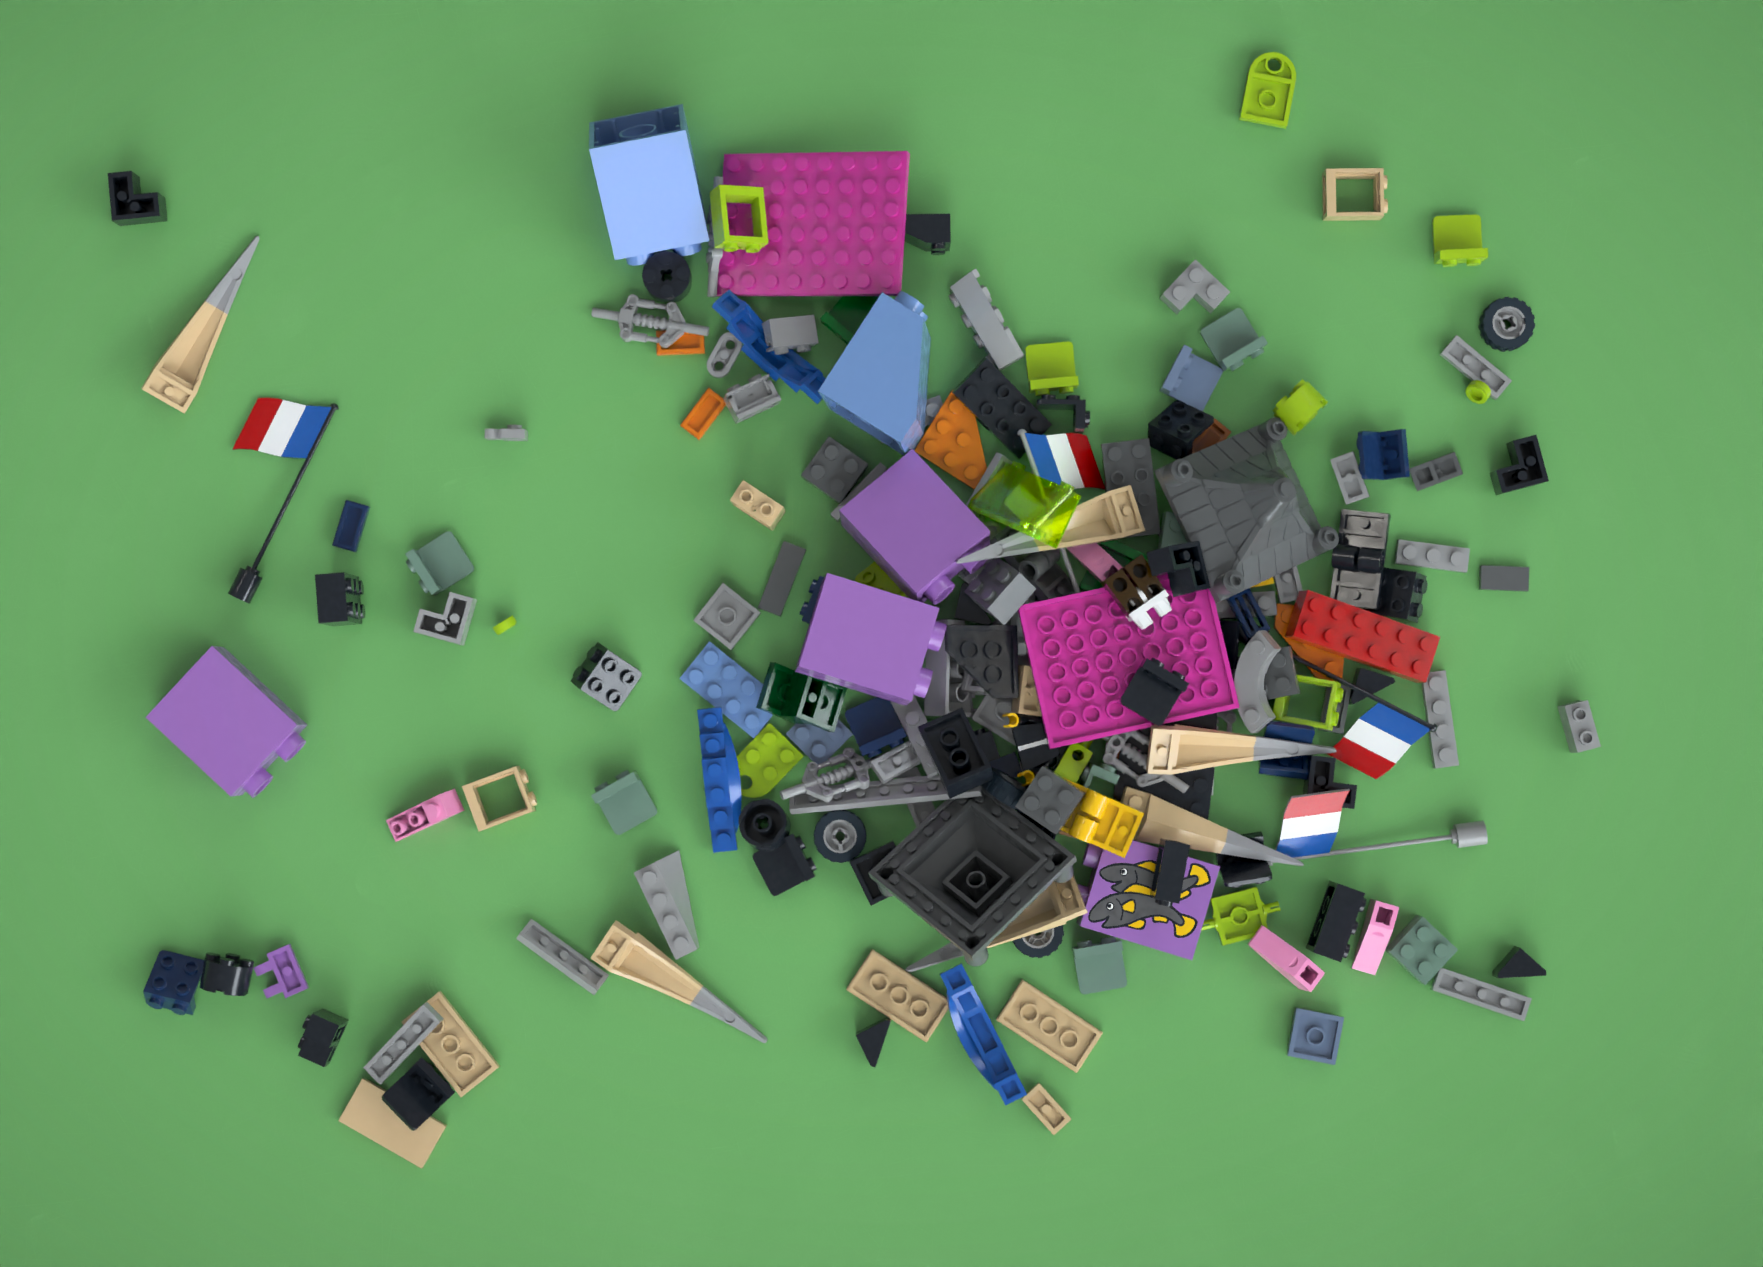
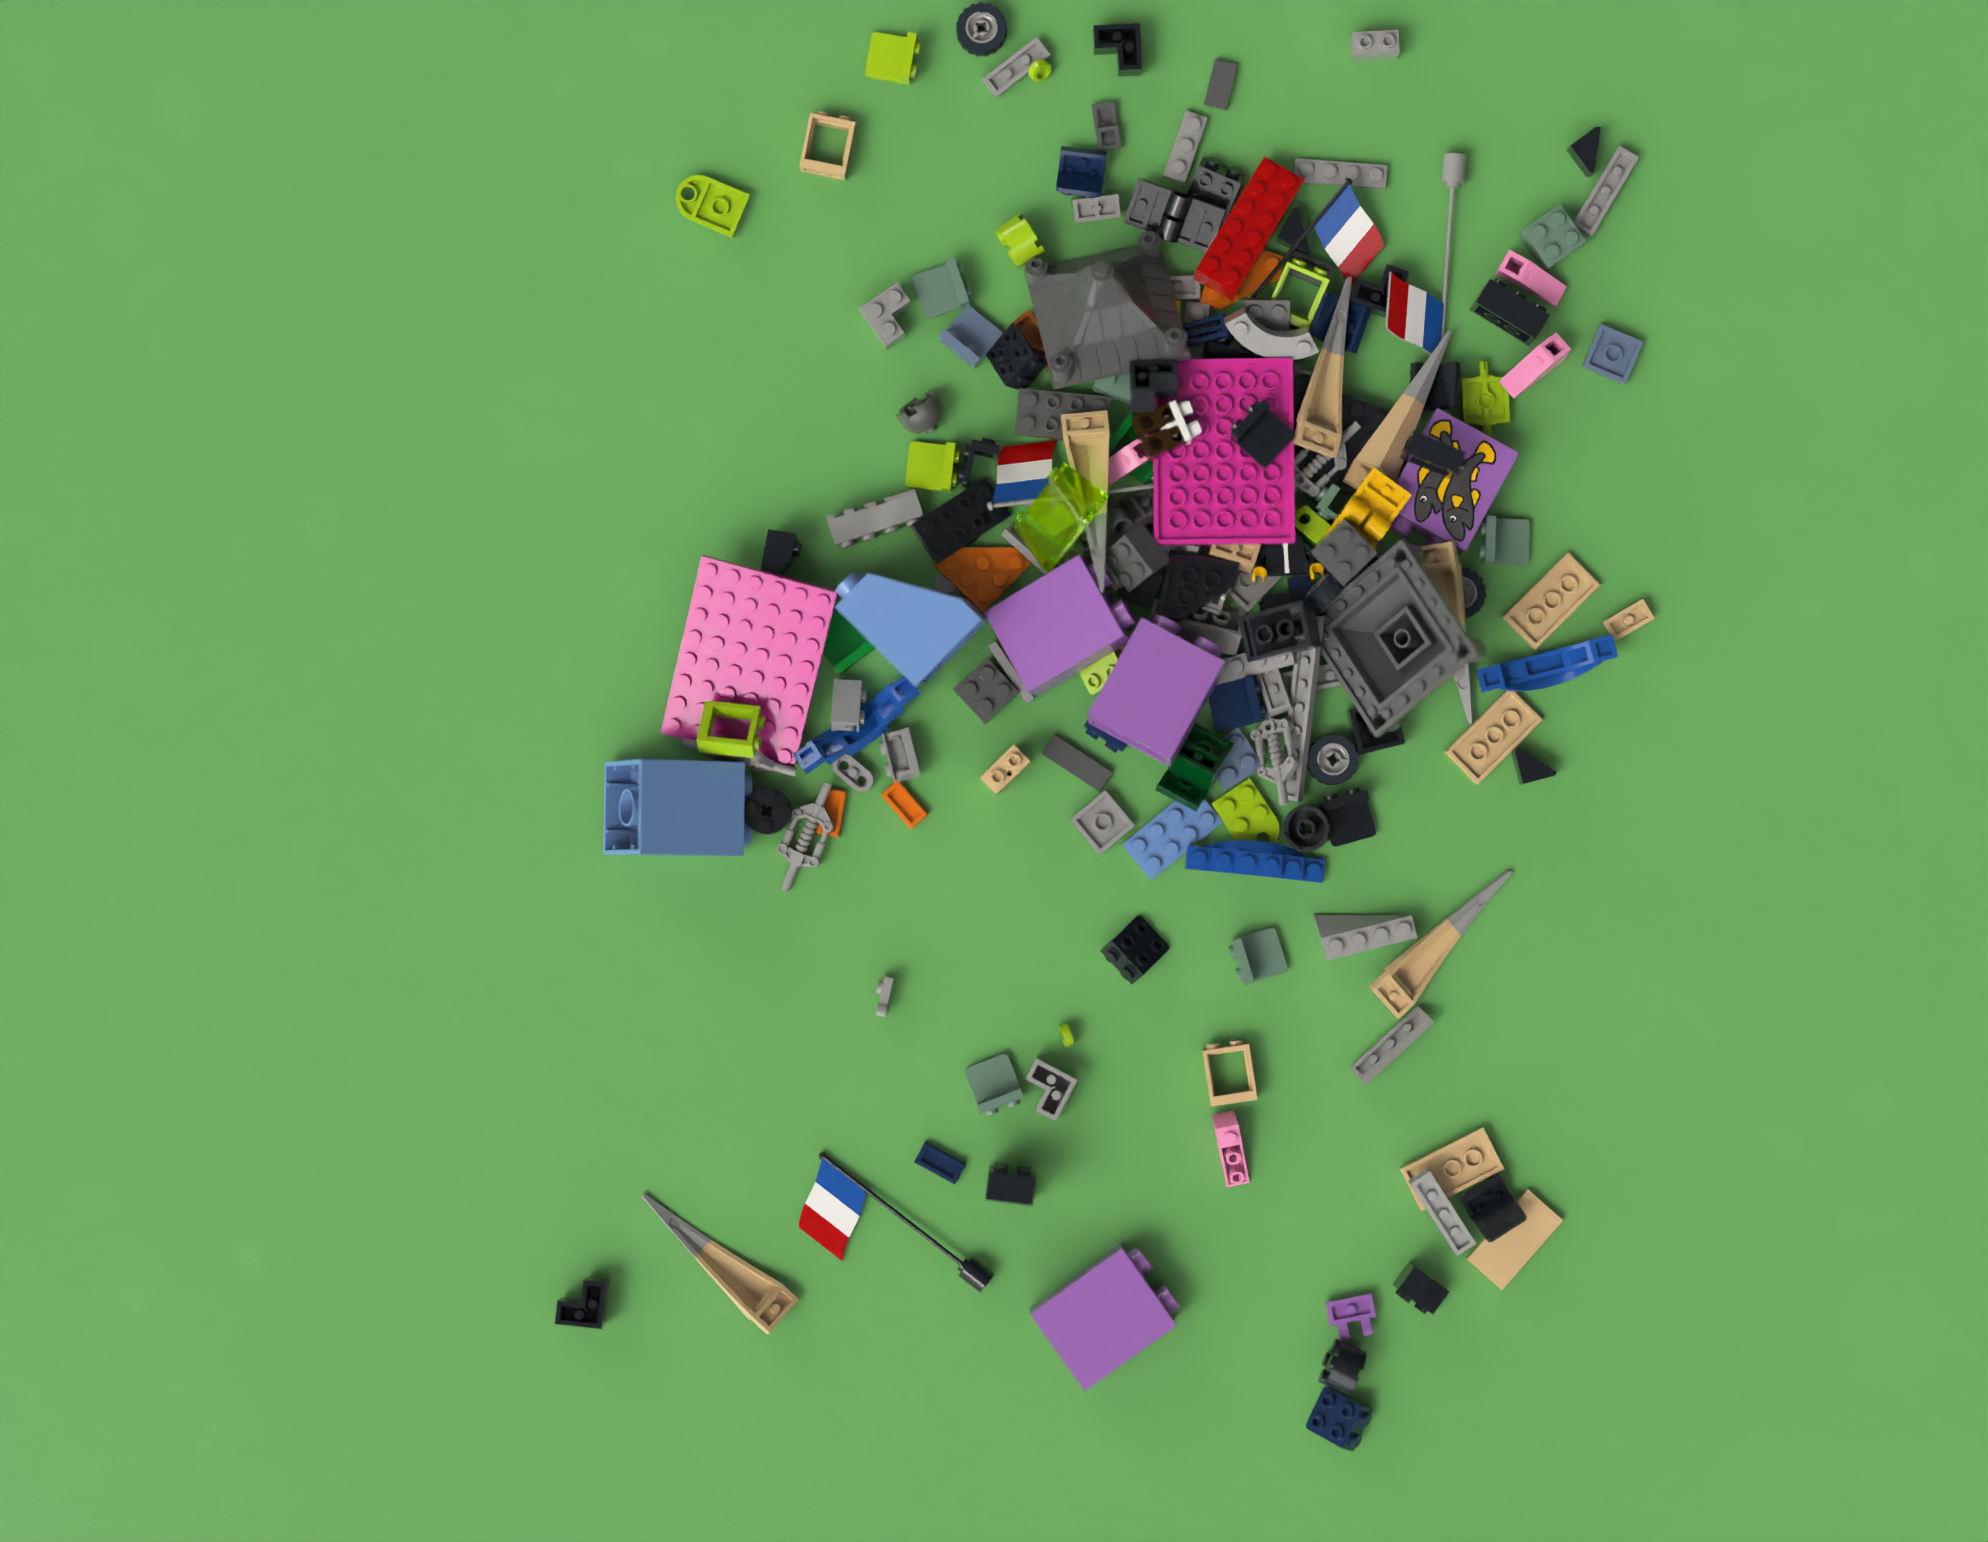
camera: 80 degrees left, 0 degrees up
(1101, 346) = (922, 414): none -> dark grey cylinder

